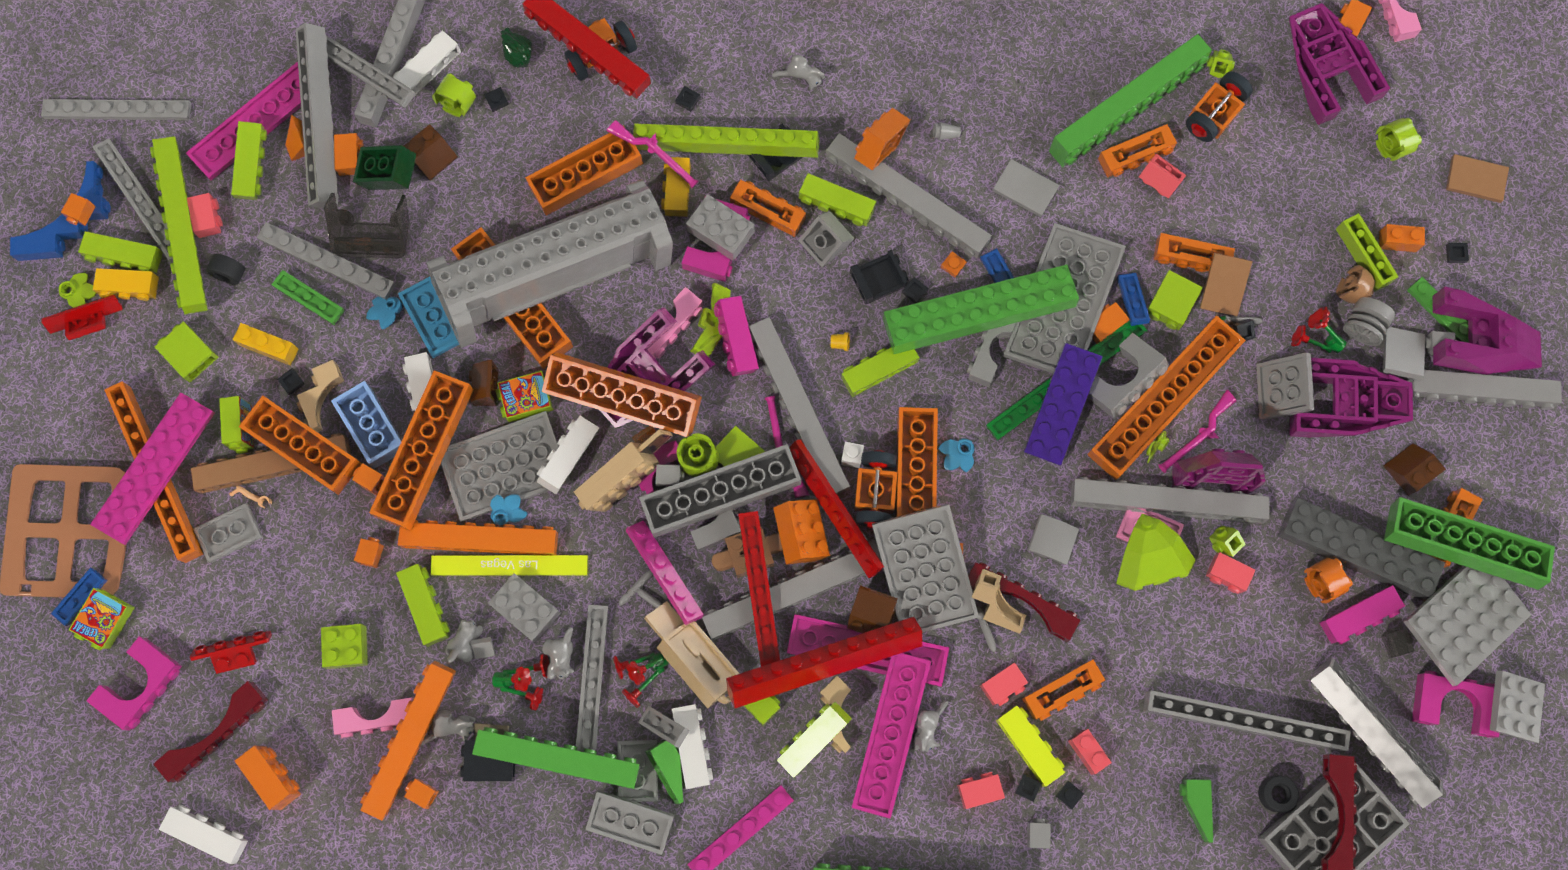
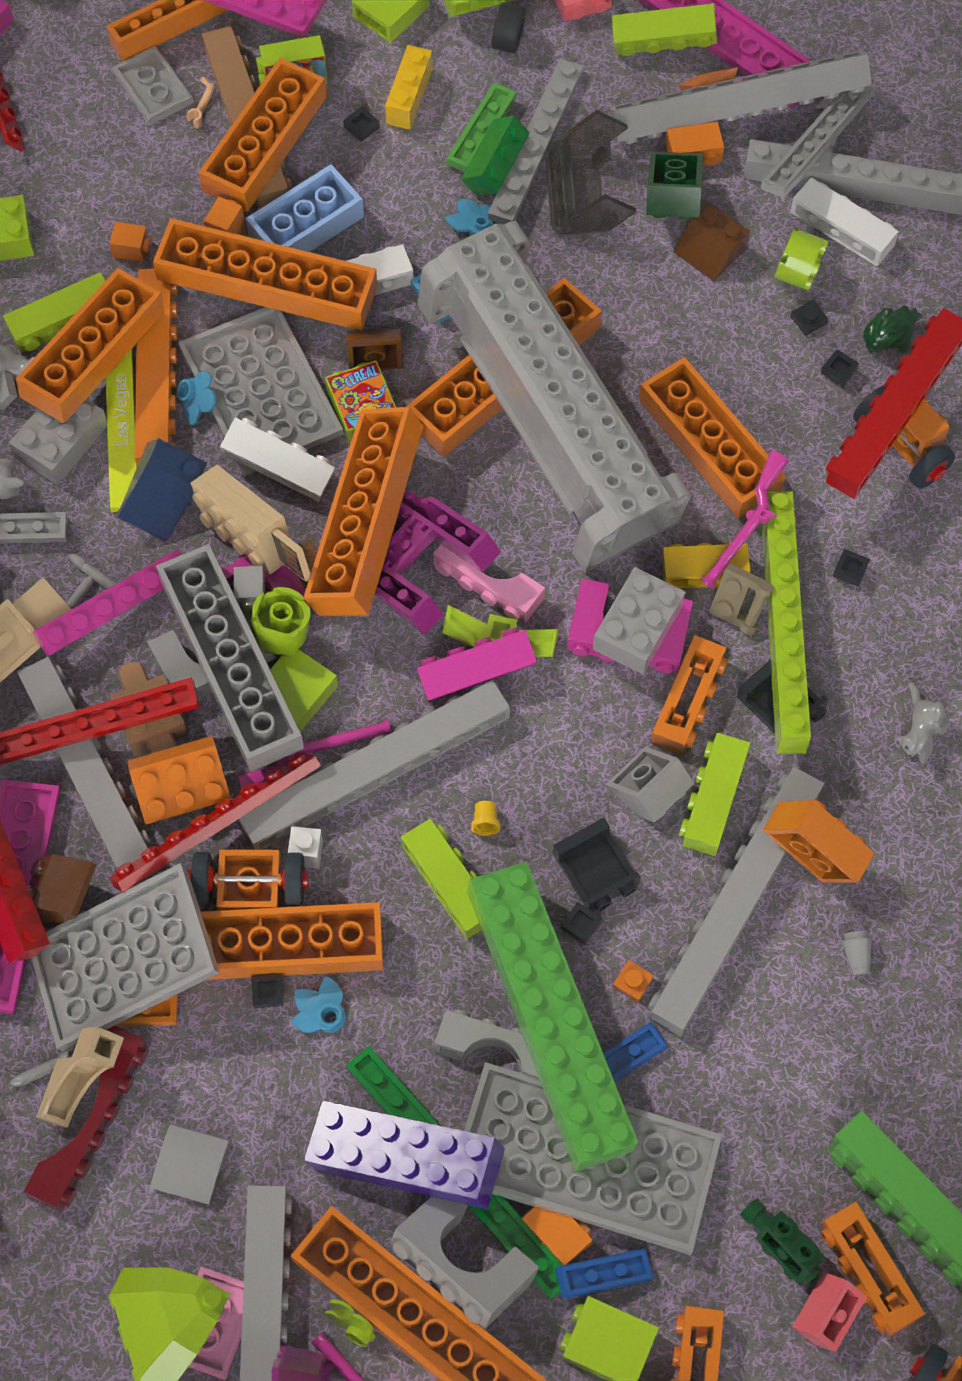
camera: 85 degrees right, 10 degrees down
(311, 401) = (332, 148): tan arch -> none
(337, 288) = (495, 156): none -> green brick
(466, 575) = (90, 345): none -> orange brick
(539, 84) = (839, 368): none -> black plate
(581, 534) = (160, 488): none -> dark blue slope
(702, 169) = (732, 595): none -> dark tan plate
(946, 485) = (267, 991): none -> black plate
(1026, 188) = (780, 1088): light grey tile -> none
(1120, 194) = (792, 1245): none -> dark green brick

